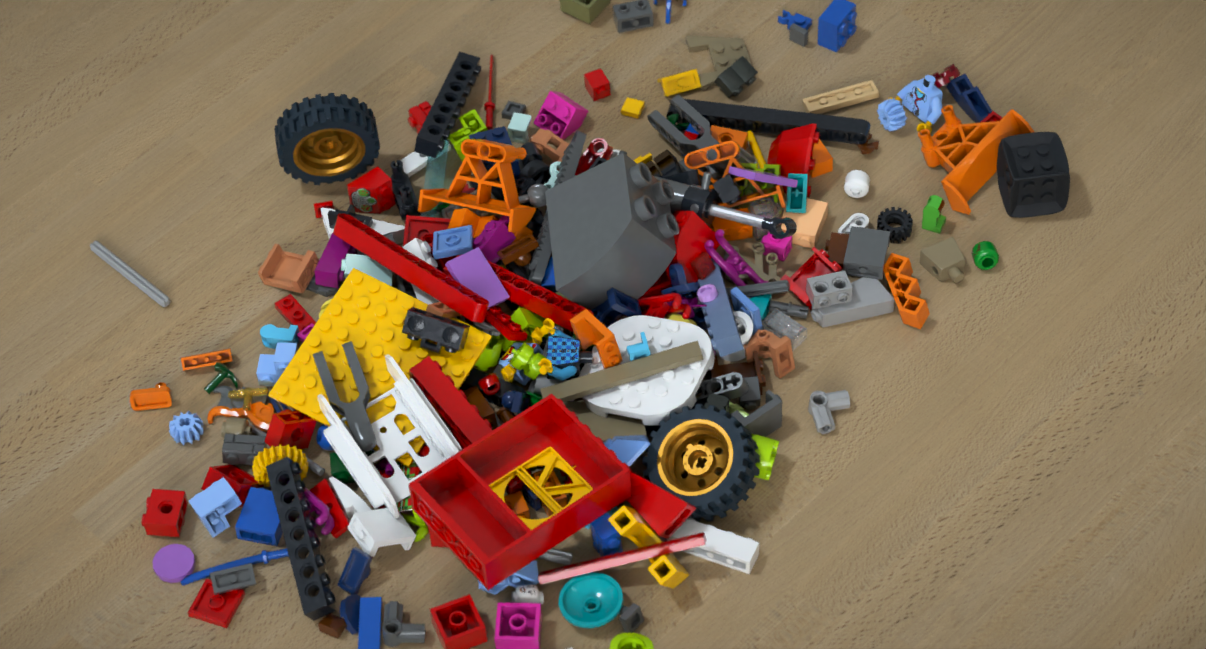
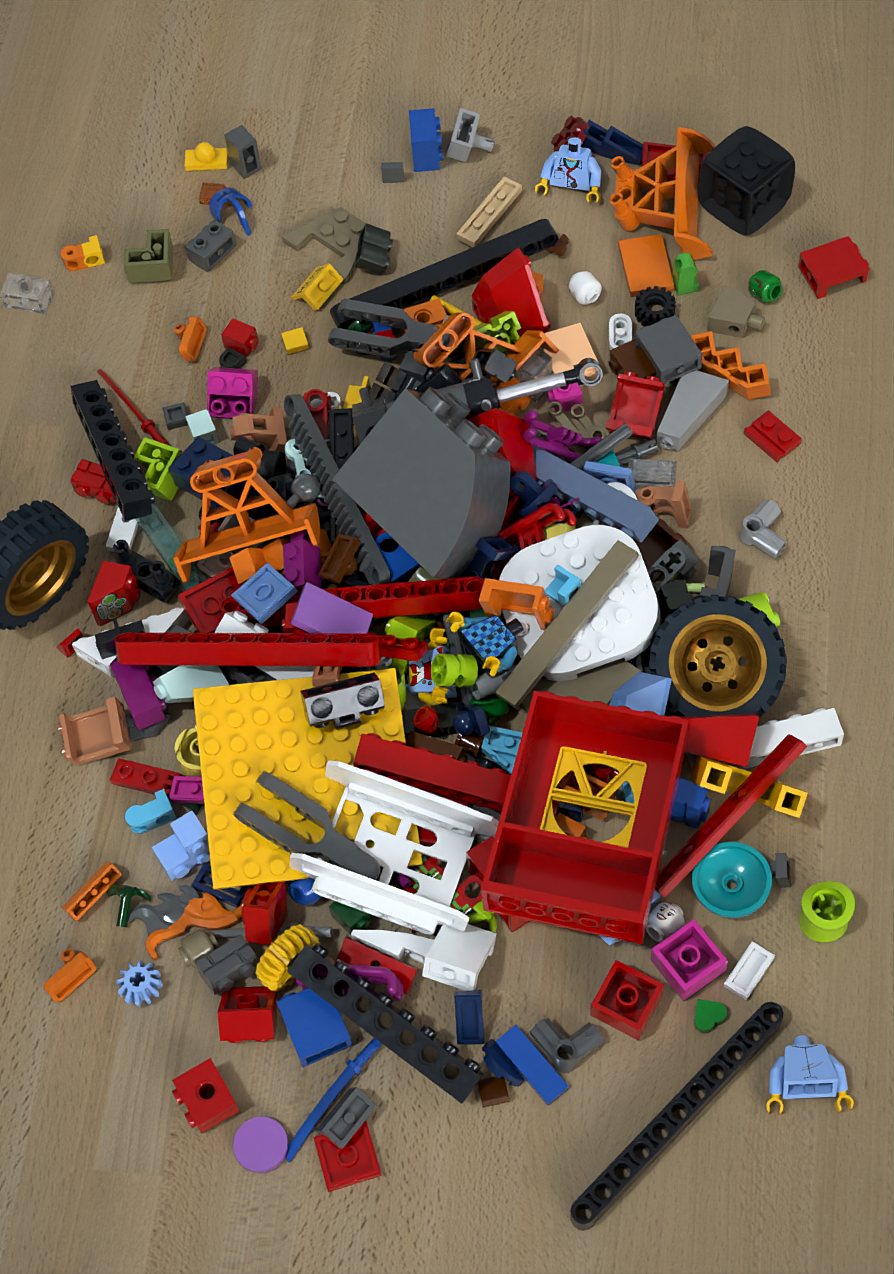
camera: 35 degrees left, 10 degrees up
(214, 504) = (260, 1050): light blue brick -> none
(247, 394) = (175, 899): clear yellow piece -> none
(566, 67) = (192, 338): none -> orange piece
(581, 96) = (232, 359): none -> pearl dark grey tile
(702, 265) = (534, 459): clear red tile -> none
(707, 293) = (567, 485): lavender tile -> none
(763, 177) = (519, 332): medium lavender tile -> none
(797, 19) = (372, 161): blue plate -> none
(797, 196) = (549, 323): teal slope -> none
(829, 289) = (668, 408): light grey brick -> none
(869, 38) = (465, 136): none -> light grey brick
(891, 114) = (556, 199): light blue gear -> none
(895, 355) = (772, 436): none -> red plate
(915, 192) = (645, 264): none -> orange tile
(1049, 268) = (832, 265): none -> red panel

